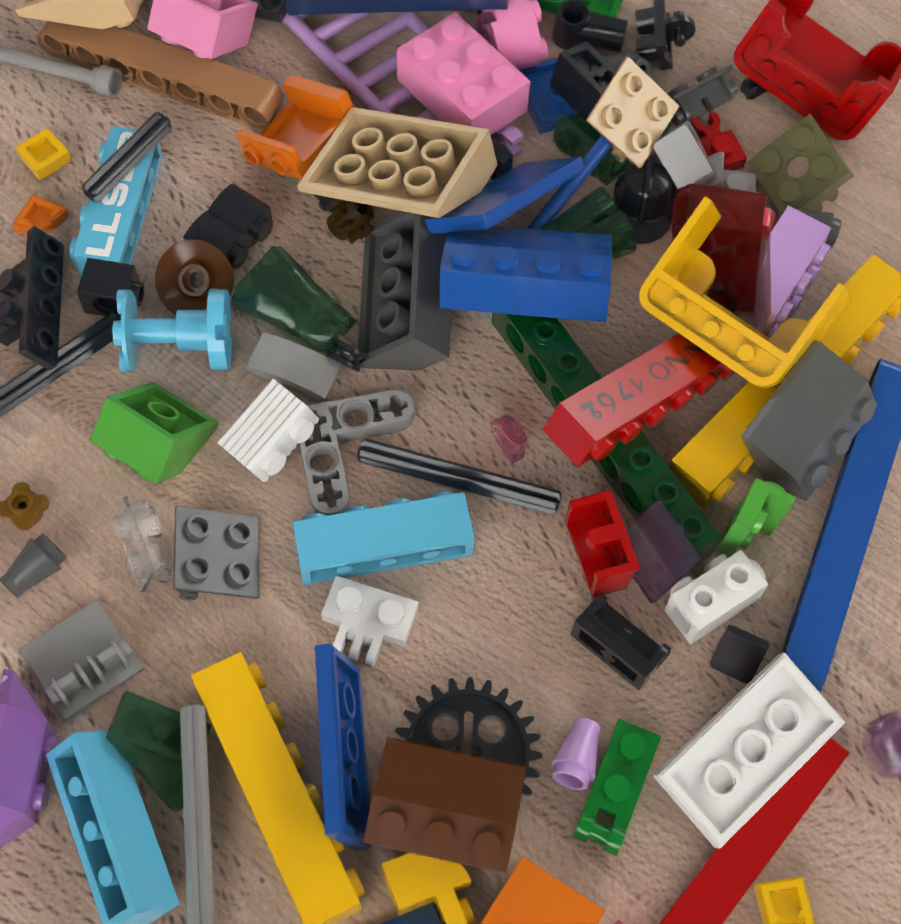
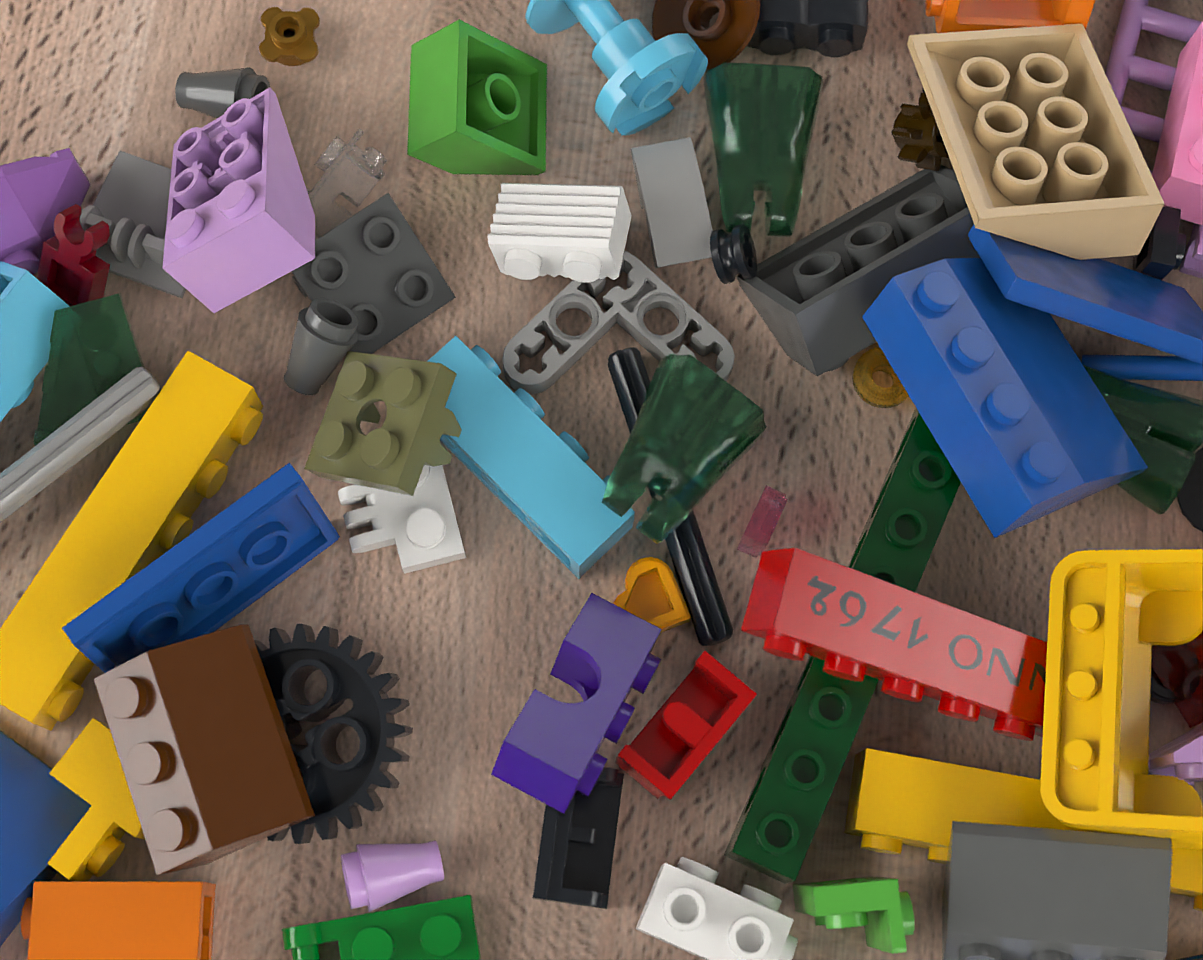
camera: 55 degrees right, 10 degrees up
(77, 710) = (70, 259): none -> dark red plate
(118, 590) = (237, 205): none -> lavender slope
(239, 602) = (319, 344): none -> dark grey cone
(343, 584) = (408, 439): none -> olive piece
(442, 443) = (681, 443): none -> clear green piece
(471, 320) = (868, 390): none -> clear yellow plate
(512, 525) = (653, 594): none -> light orange tile
(572, 605) = (557, 742): none -> dark purple arch
(660, 551) = (721, 807): clear purple piece -> none

